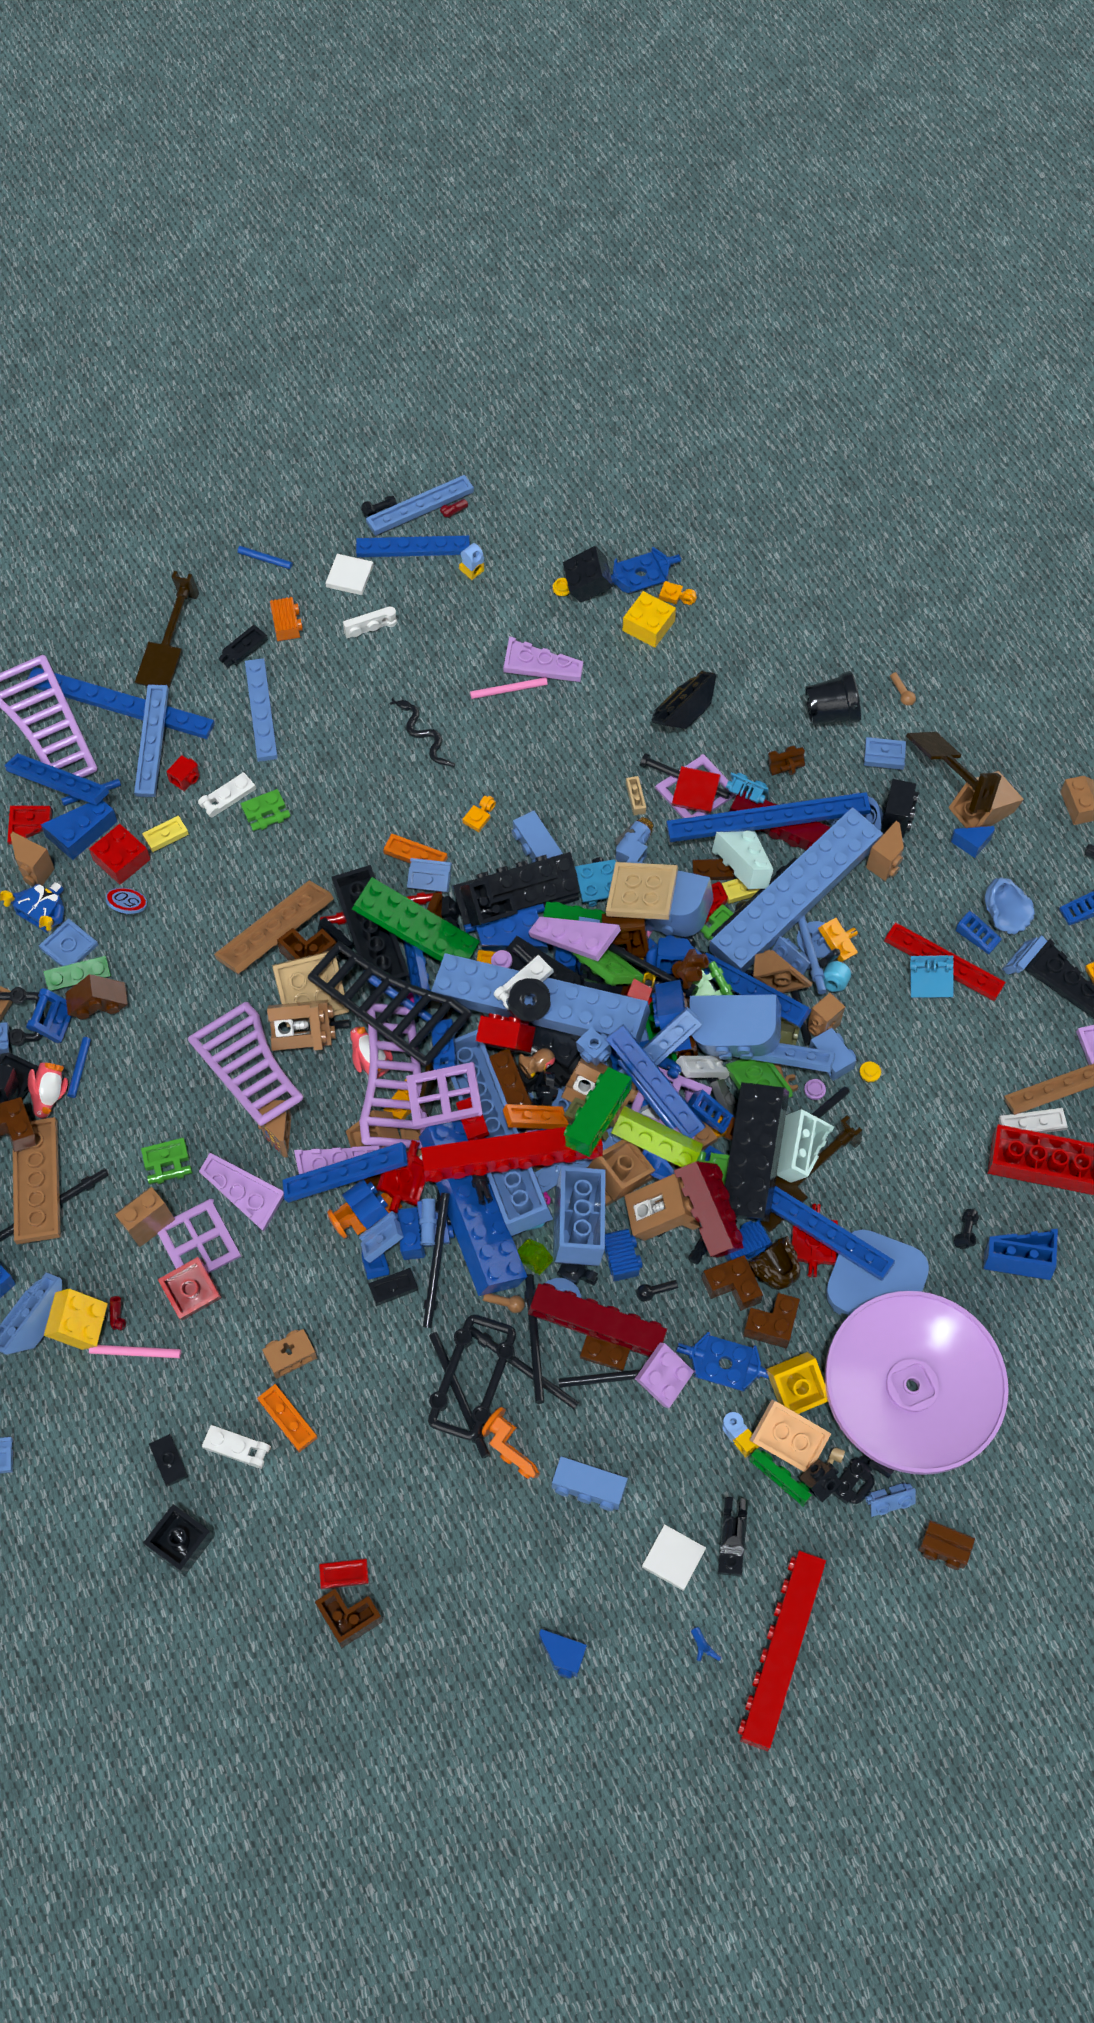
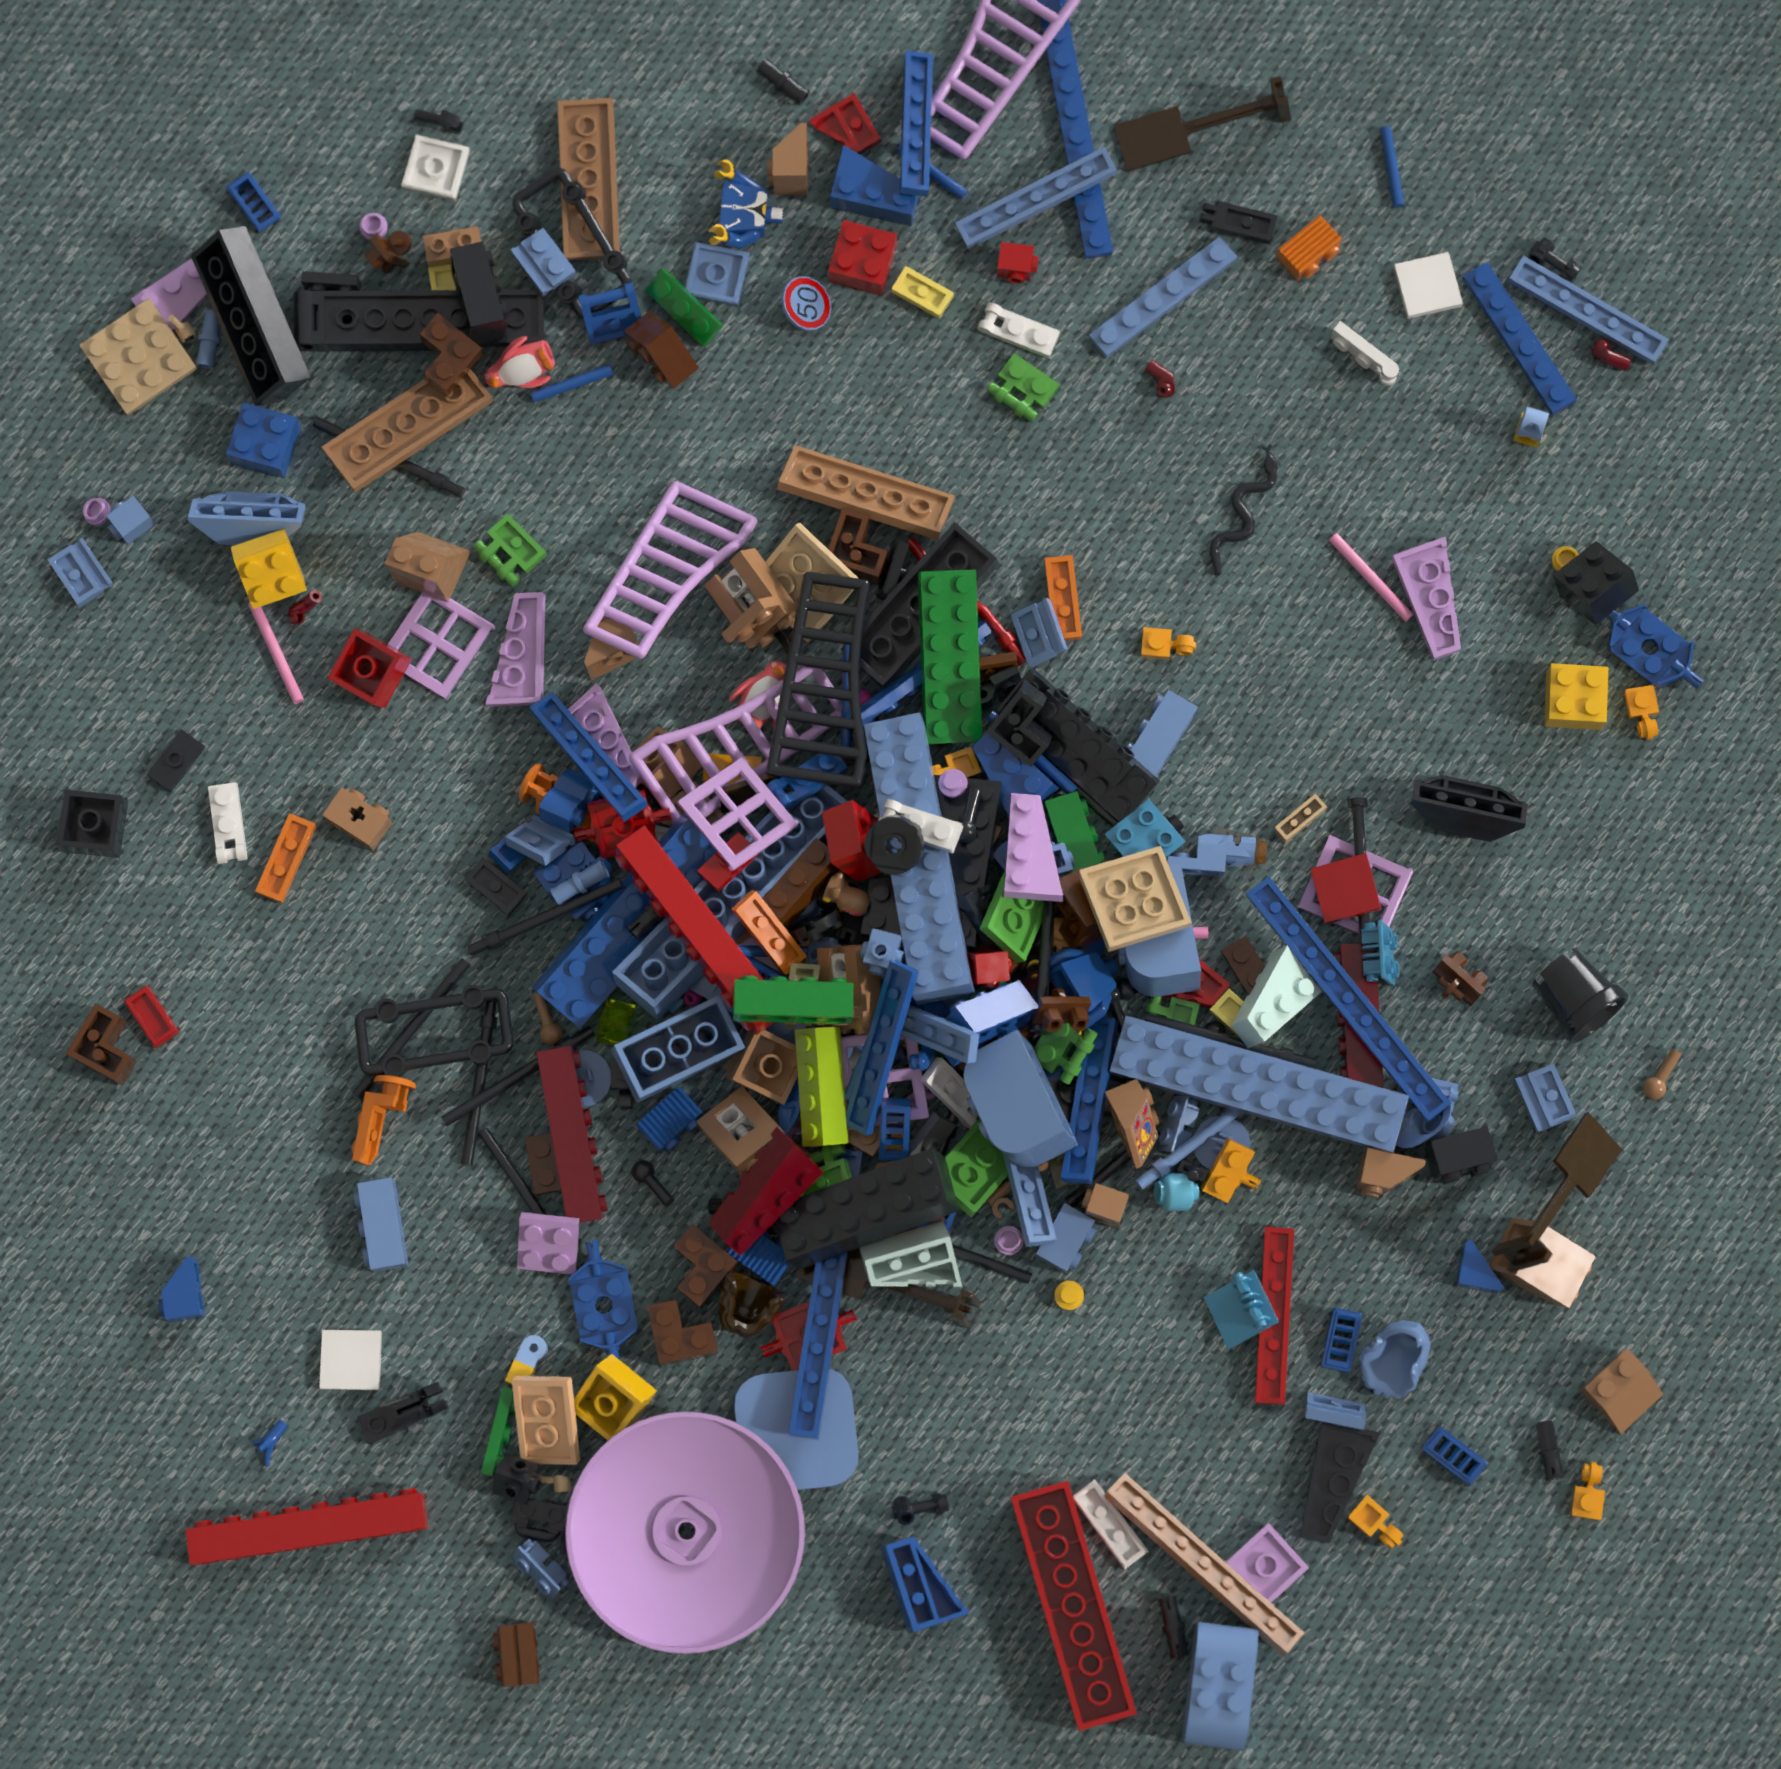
camera: 65 degrees right, 15 degrees up
(312, 733) = (1164, 379): none -> dark red arm

